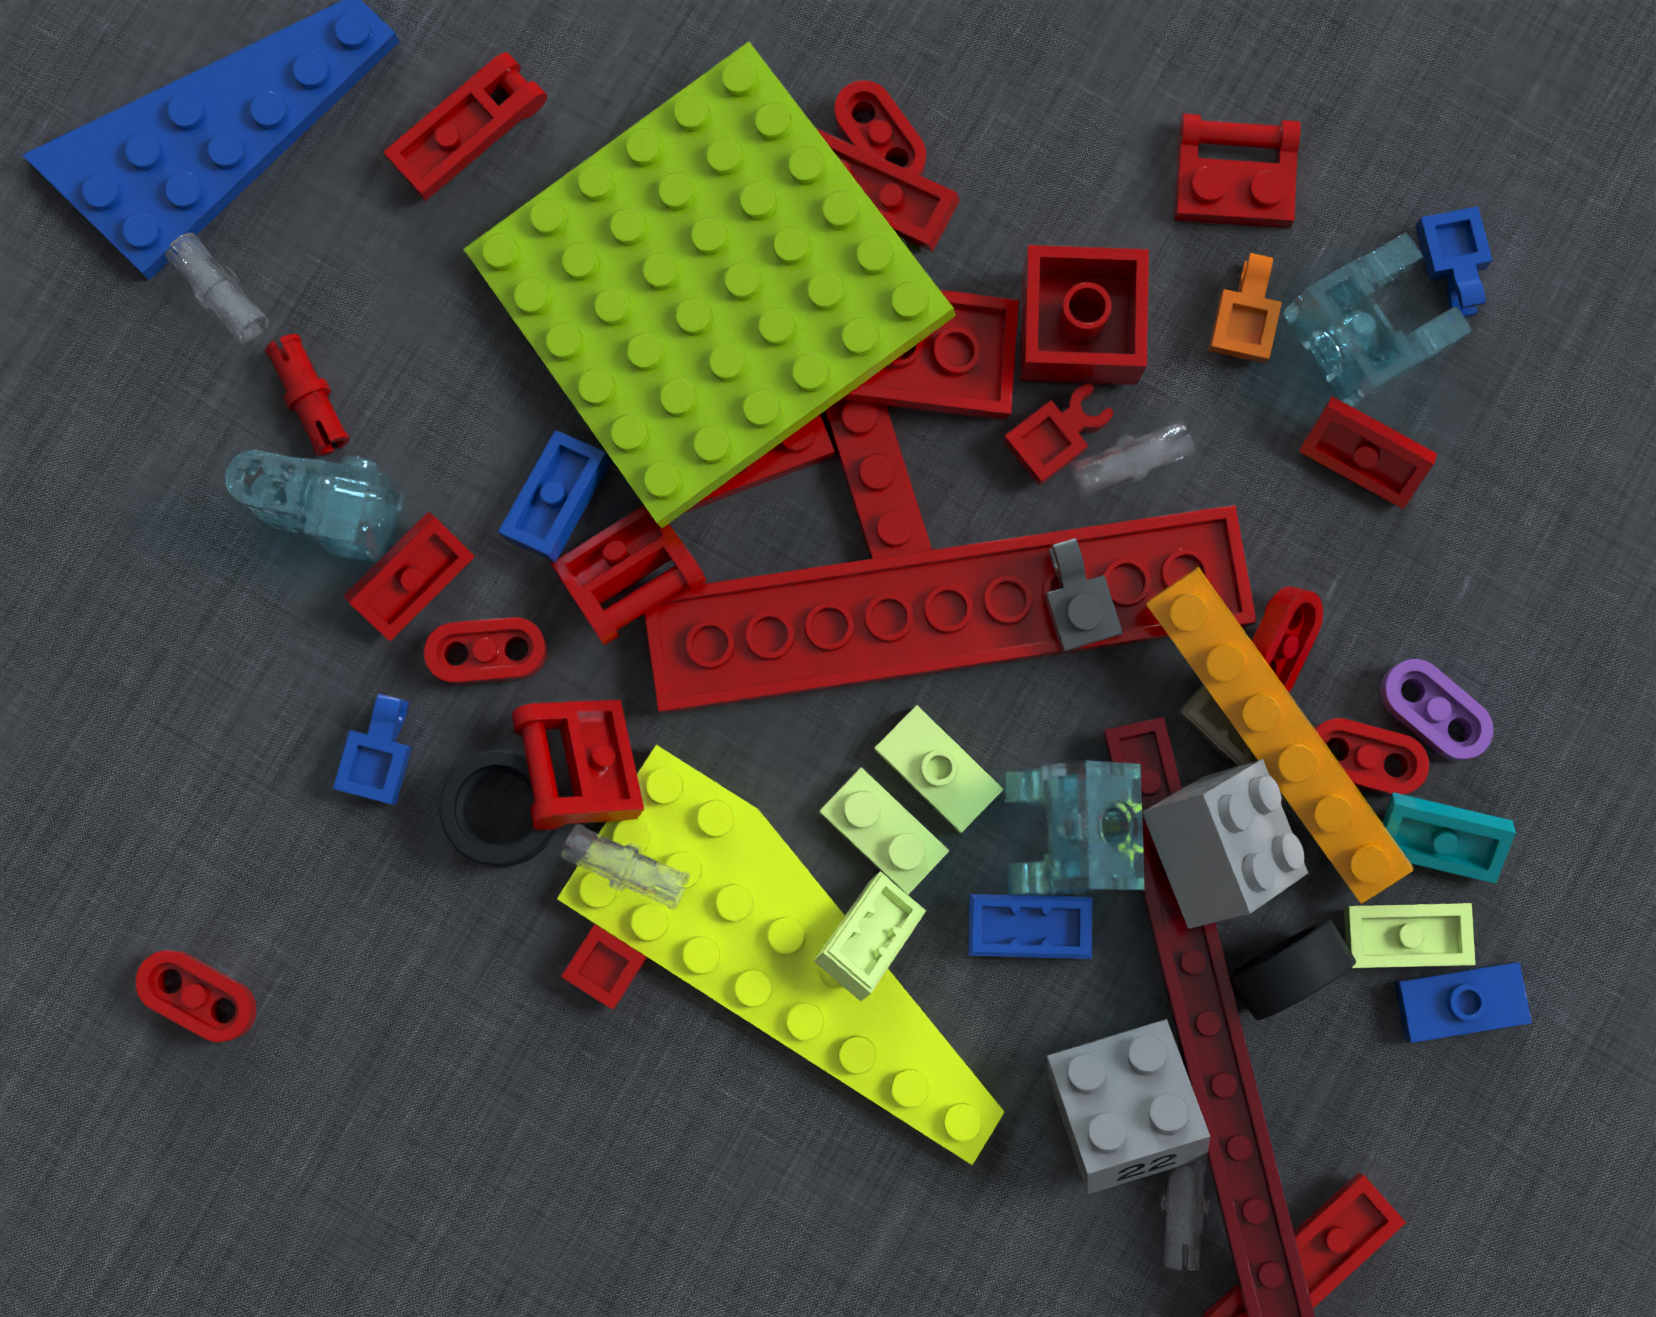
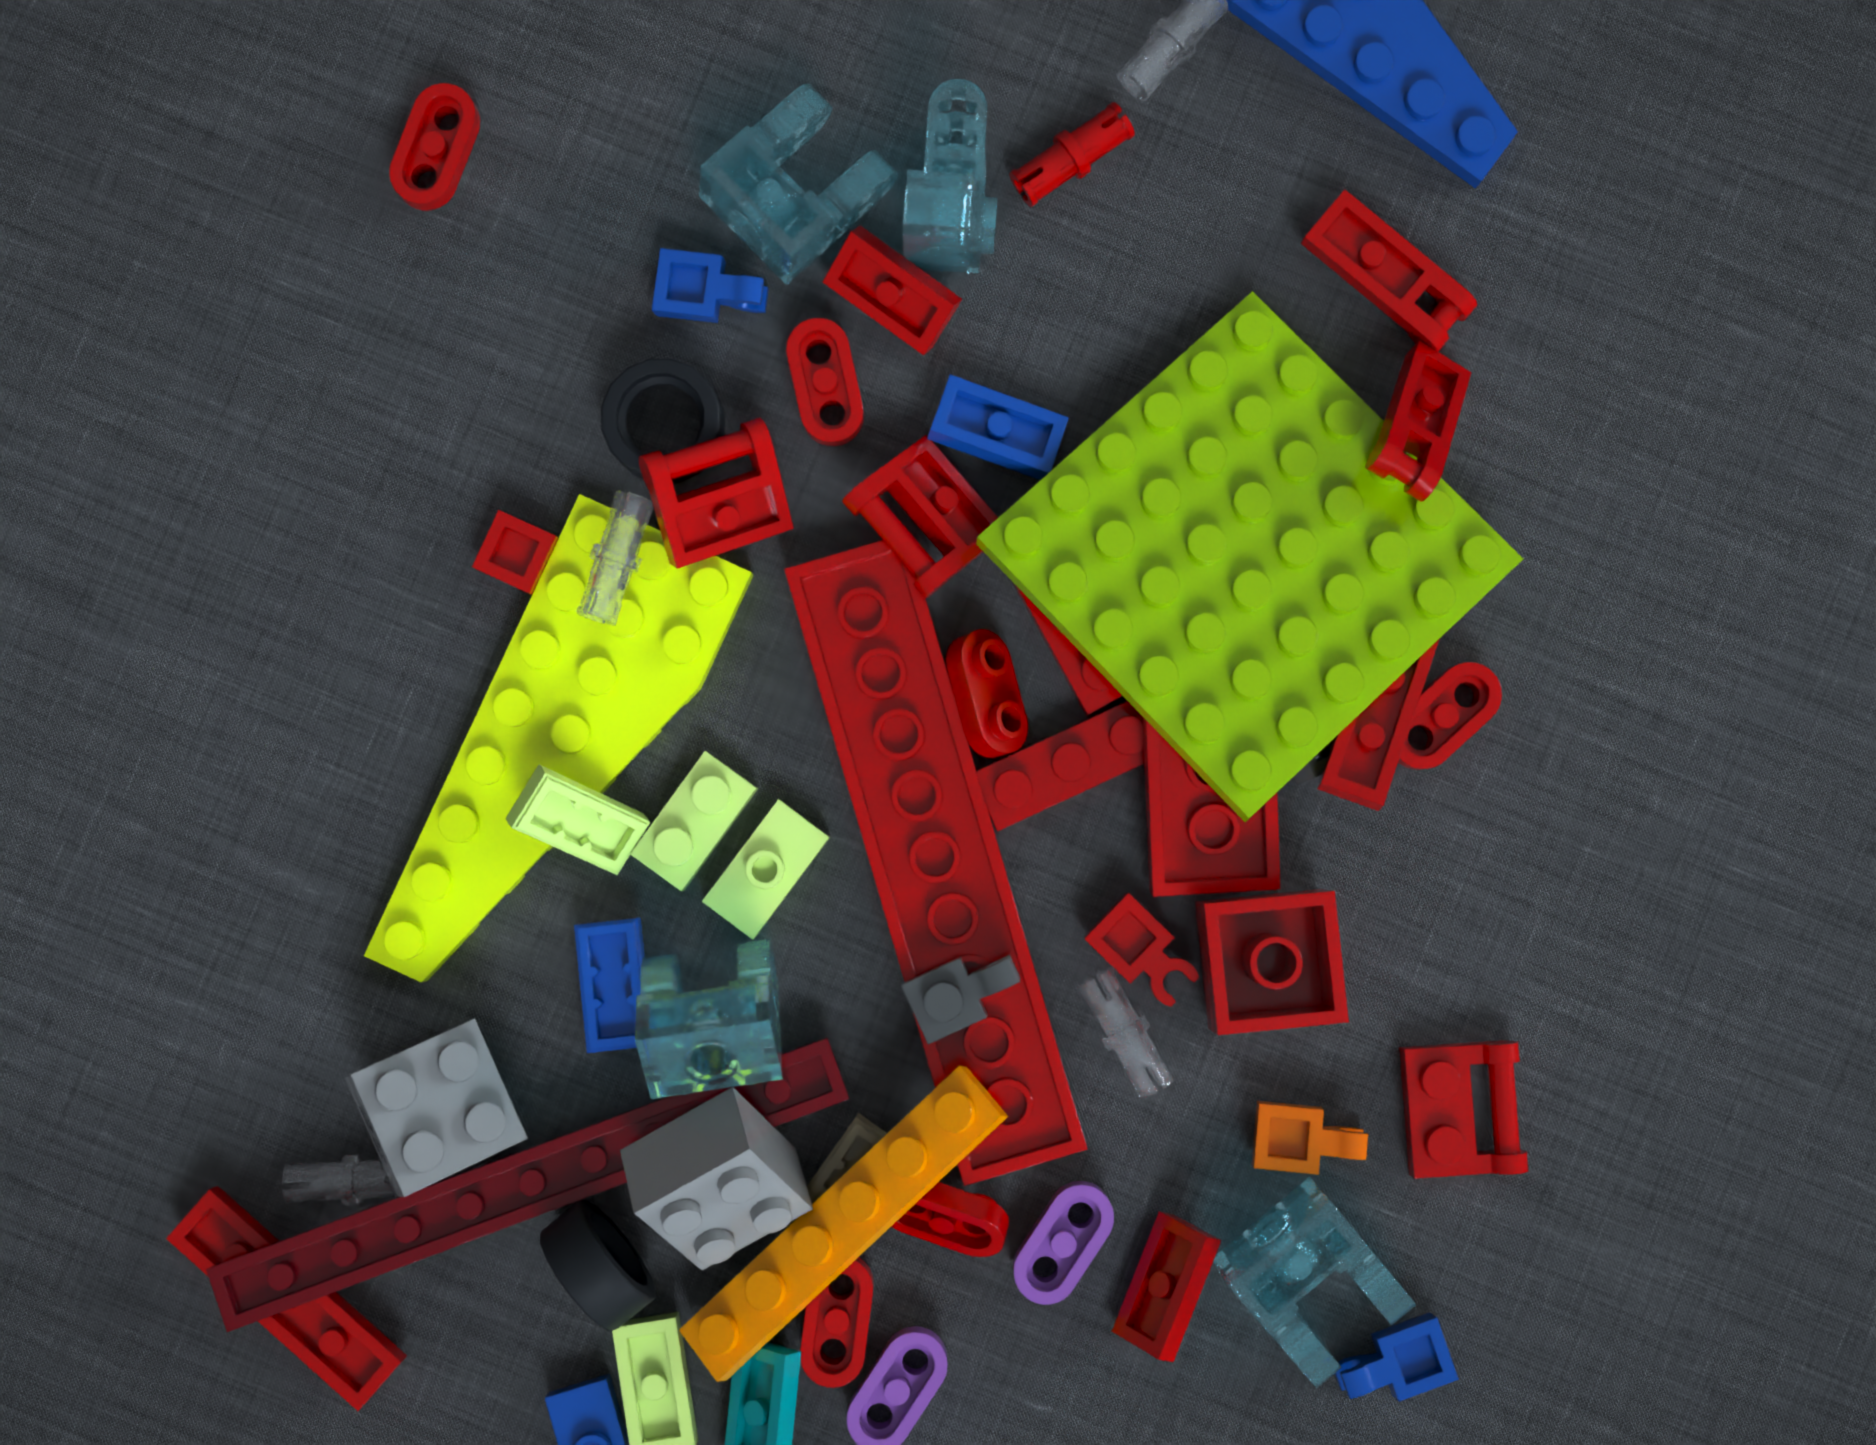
camera: 85 degrees right, 5 degrees up
(310, 677) = (768, 207): none -> clear light blue brick
(610, 112) = (1420, 421): none -> red plate
(802, 540) = (987, 693): none -> red plate
(1320, 535) = (1066, 1242): none -> medium lavender plate

